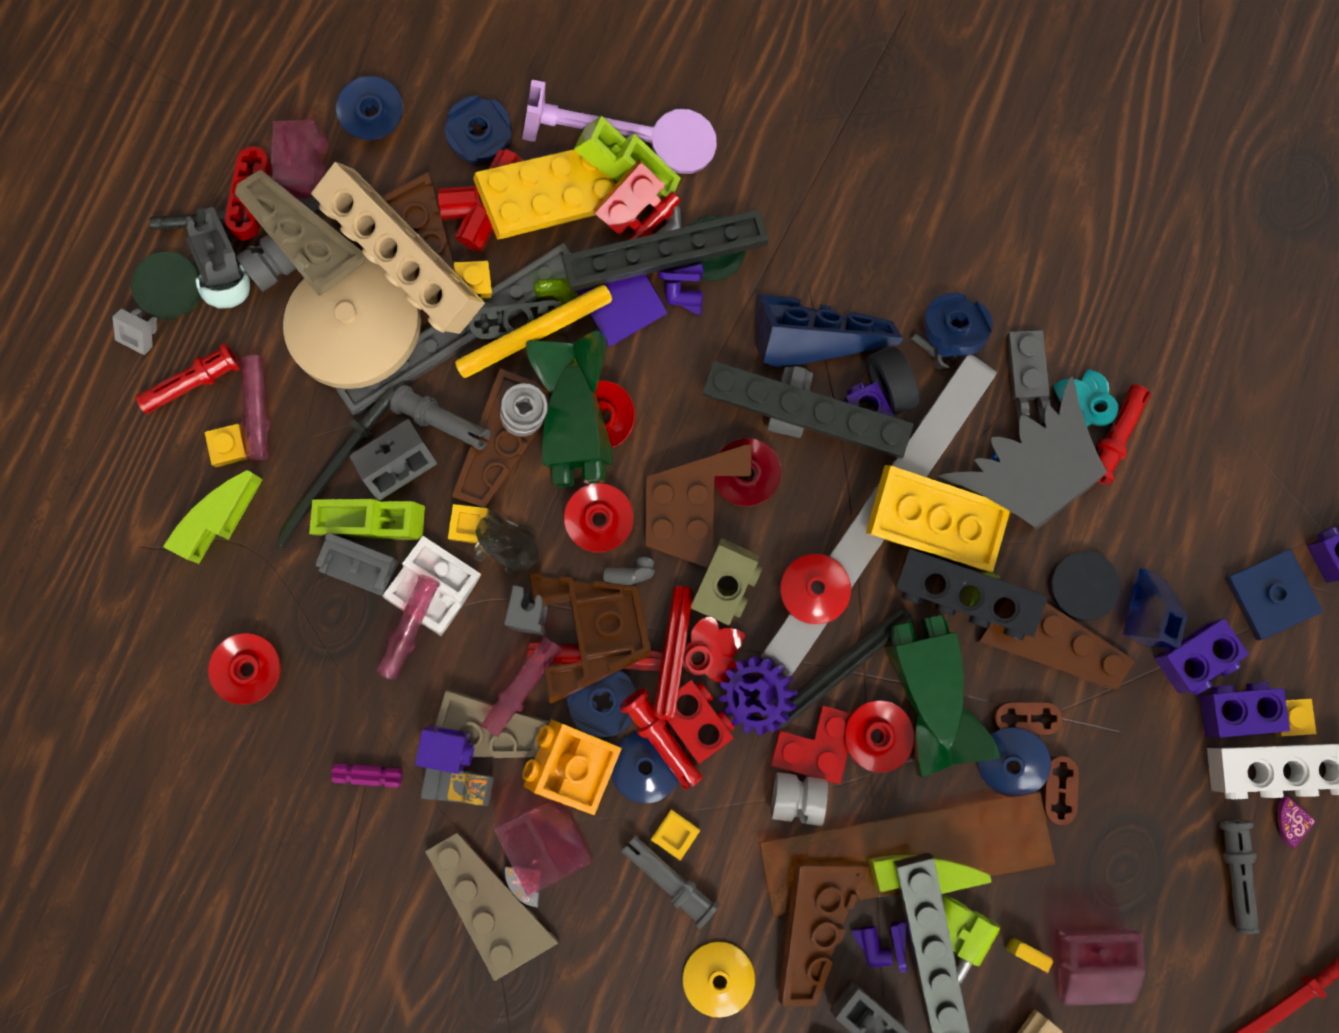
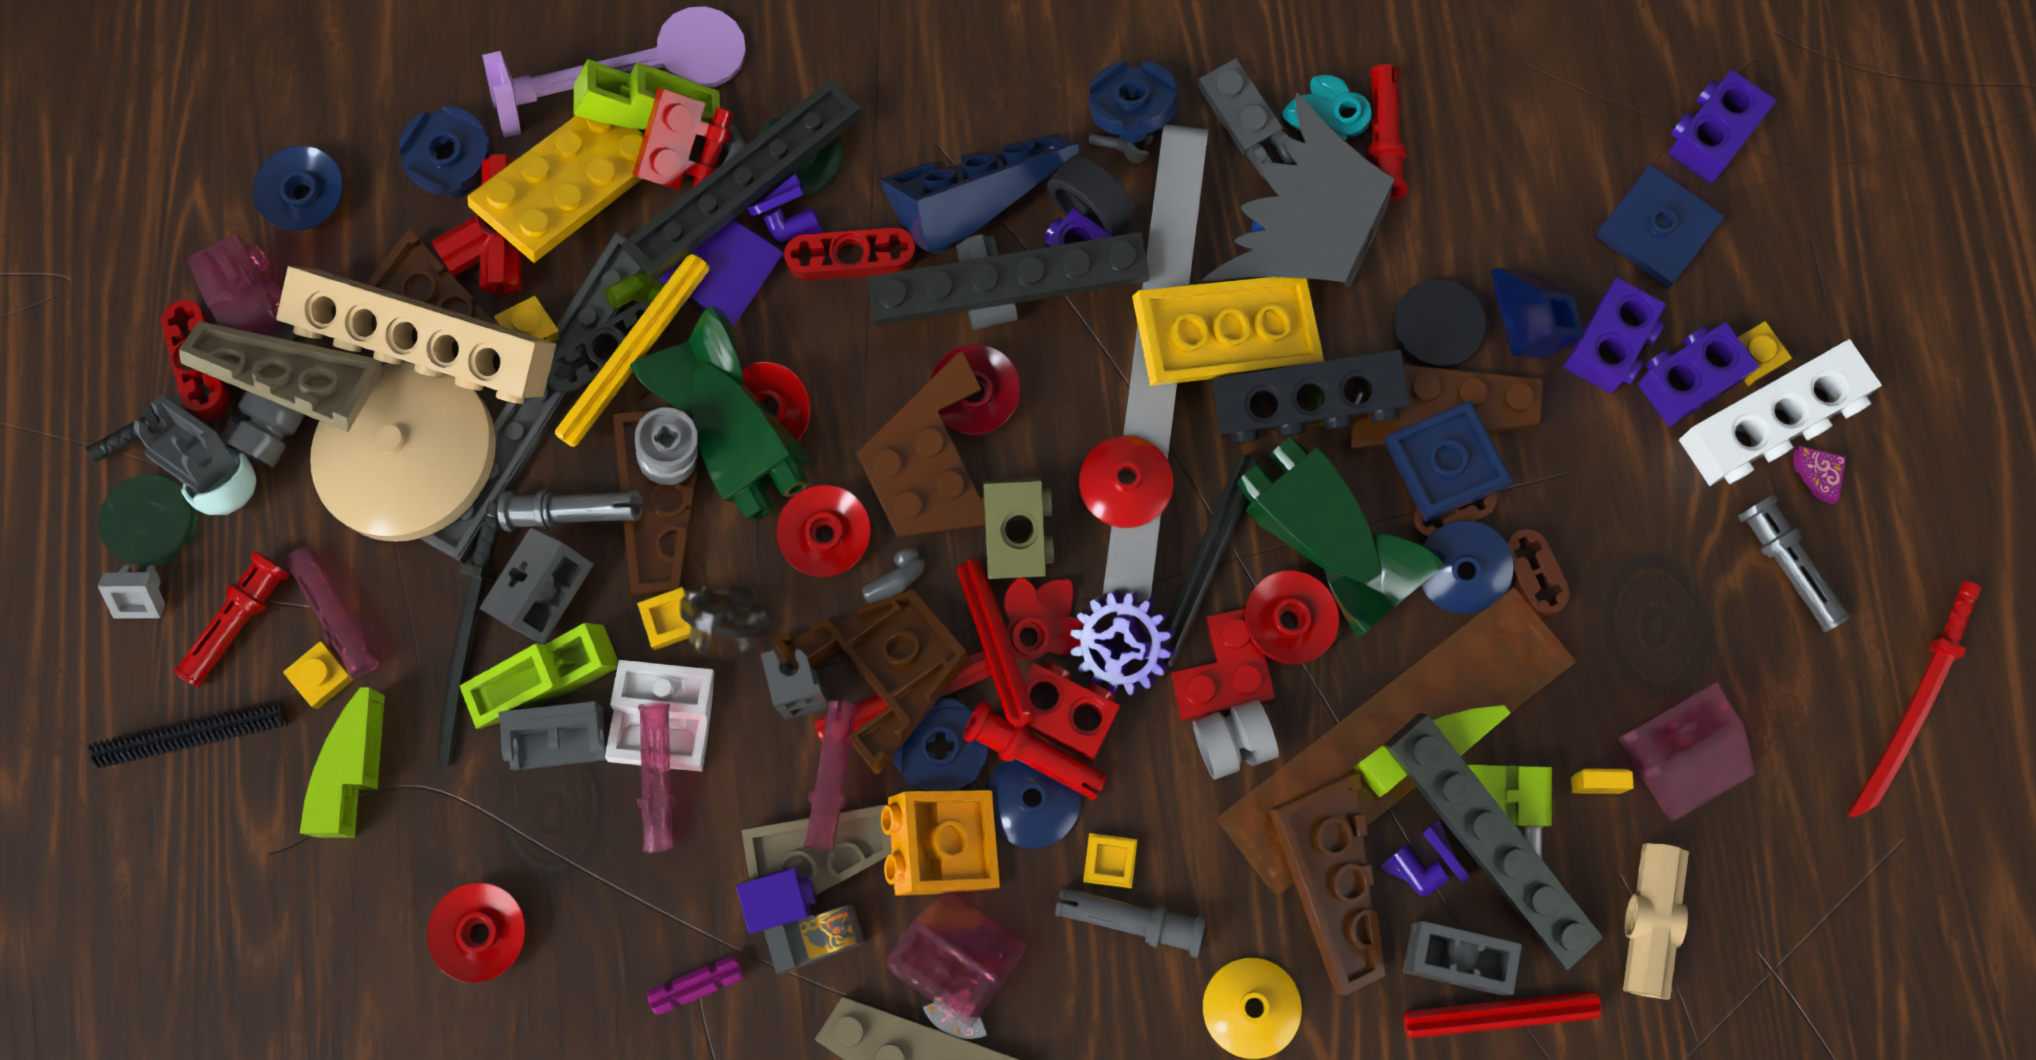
camera: 20 degrees left, 5 degrees down
(125, 442) = (188, 735): none -> black axle
(686, 333) = (836, 240): none -> red beam
(1040, 685) = (1448, 461): none -> dark blue plate

